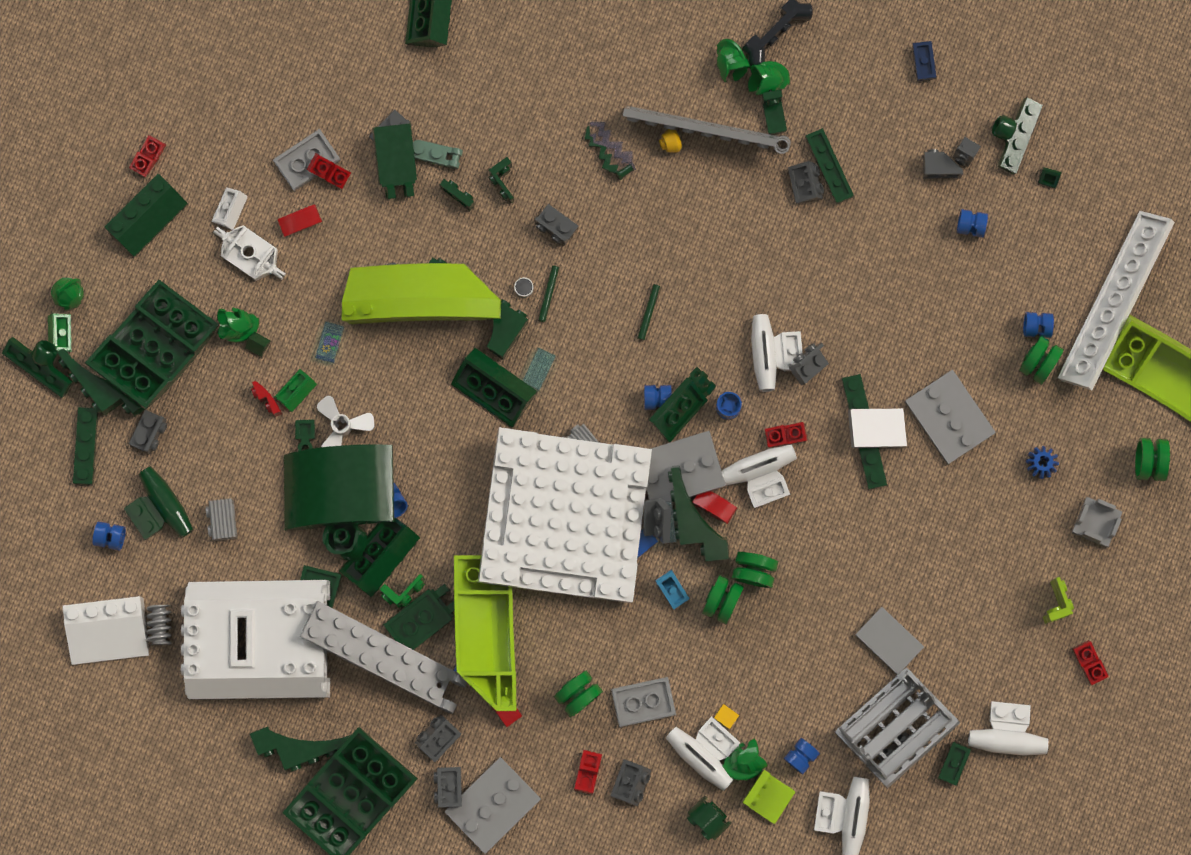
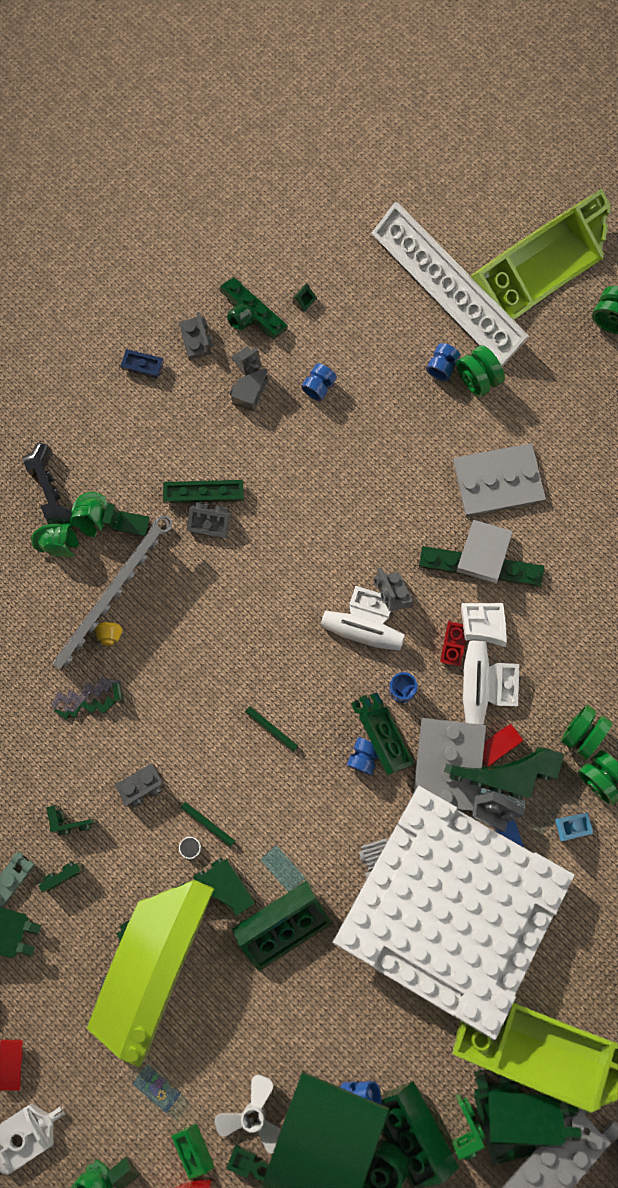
camera: 60 degrees left, 5 degrees down
(430, 636) = (530, 1120): none -> dark green tile
(814, 452) = (484, 622): none -> white plate
(970, 96) = (195, 338): none -> dark grey bracket
(1048, 467) = (584, 412): blue gear -> none

